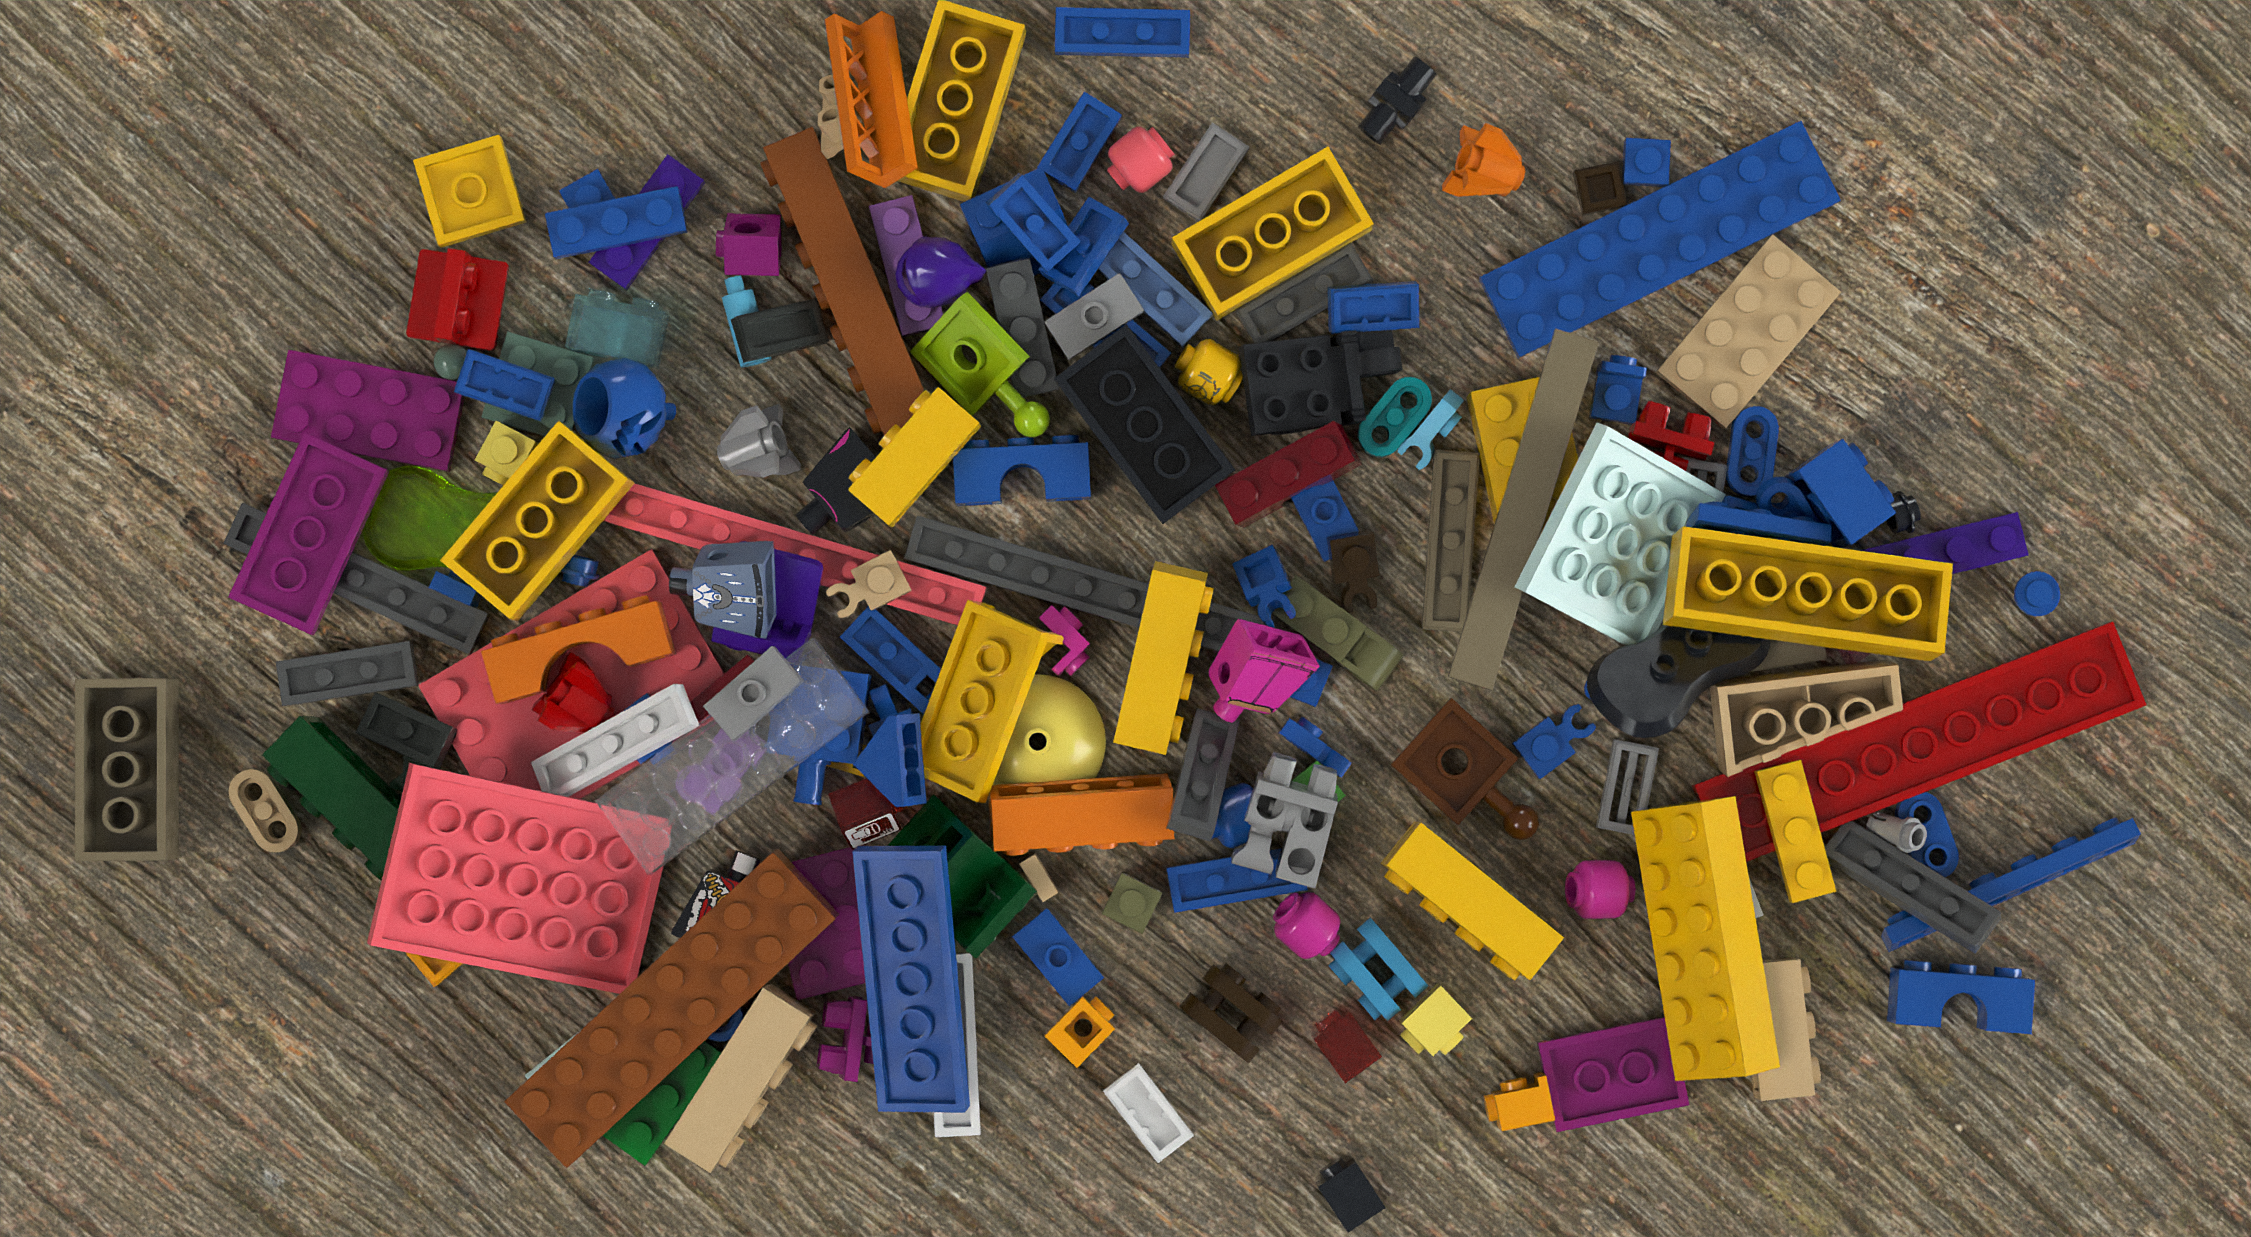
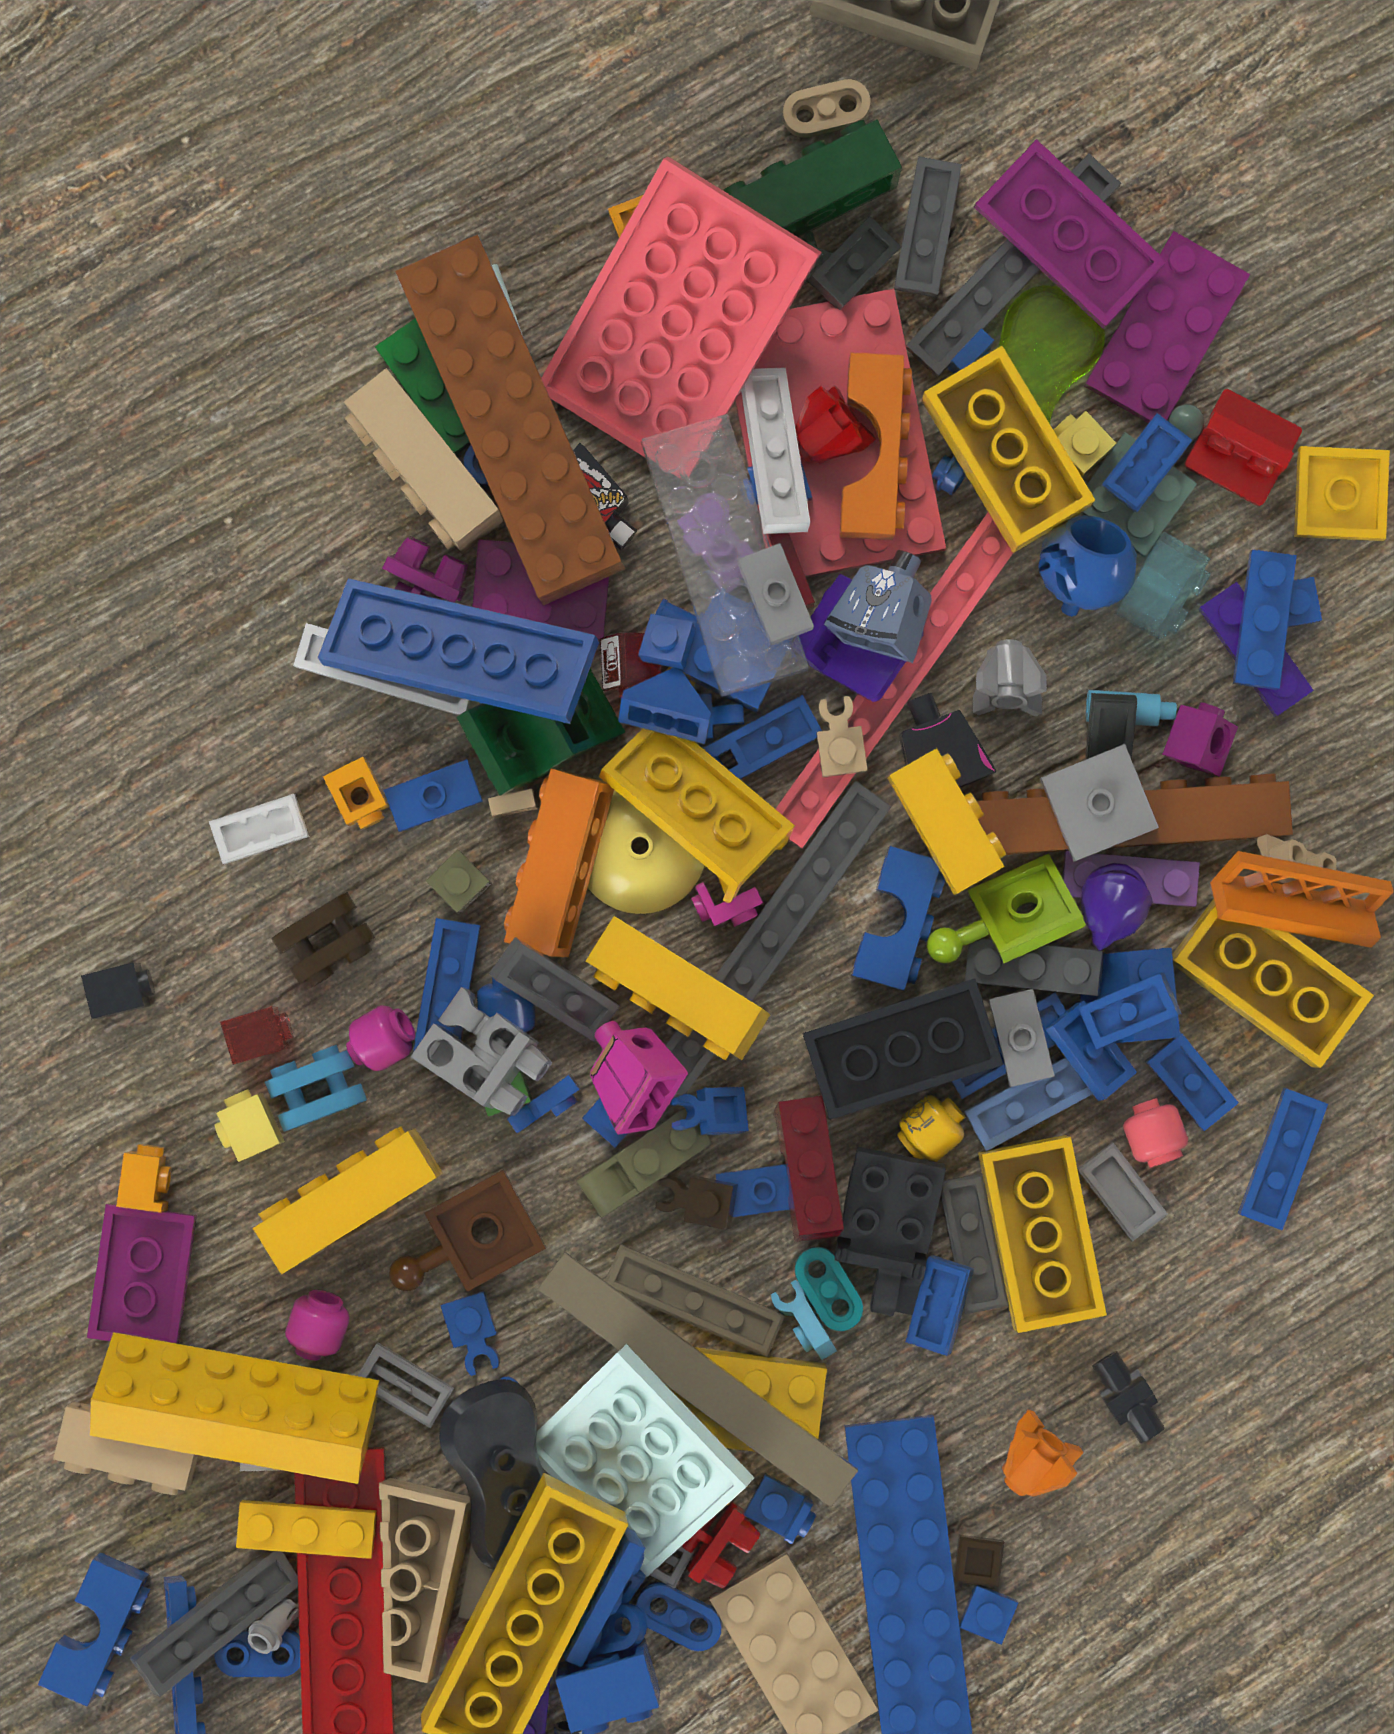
camera: 115 degrees right, 0 degrees up
(833, 782) = (667, 641): none -> blue plate
(846, 318) = (1099, 802): none -> light grey plate

